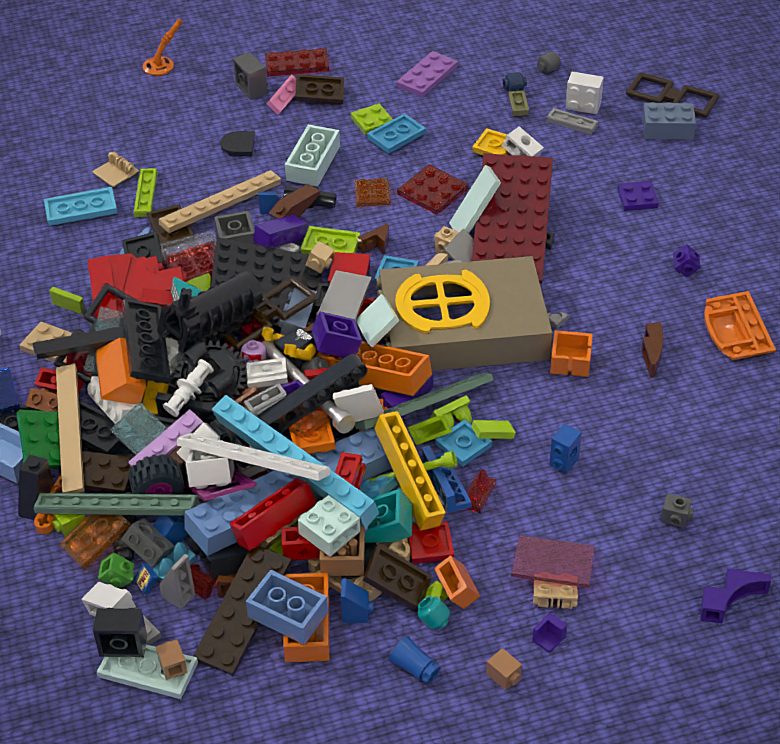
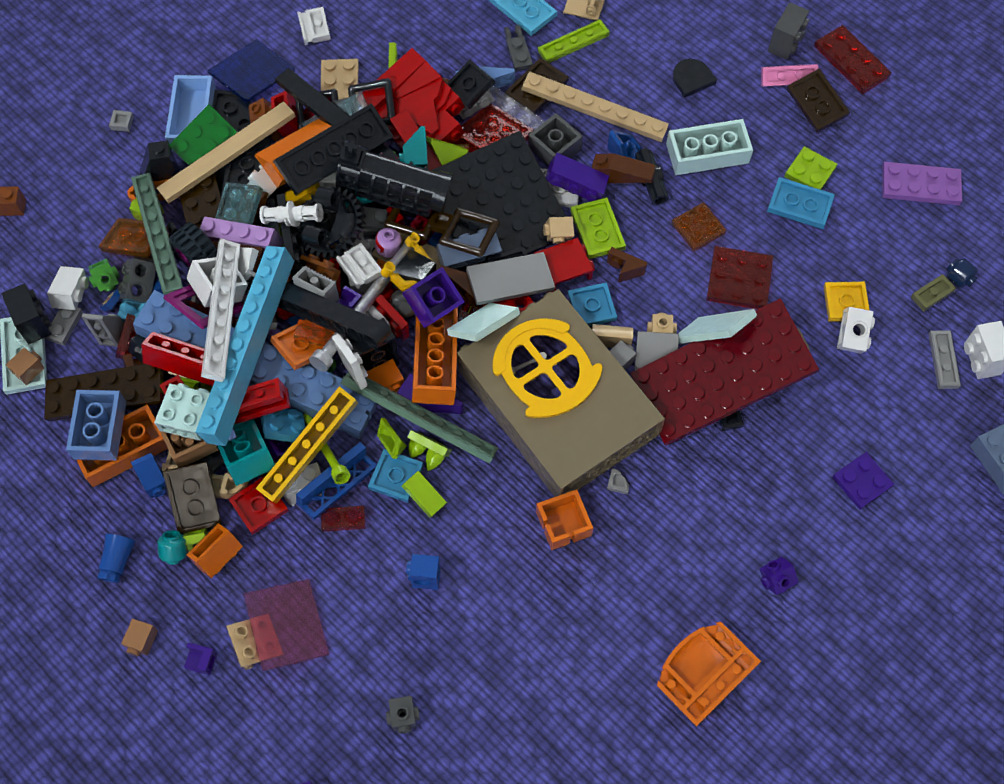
camera: 60 degrees right, 20 degrees up
(121, 224) = (518, 49): none -> dark grey hinge
(652, 347) = (625, 597): reddish brown slope -> none

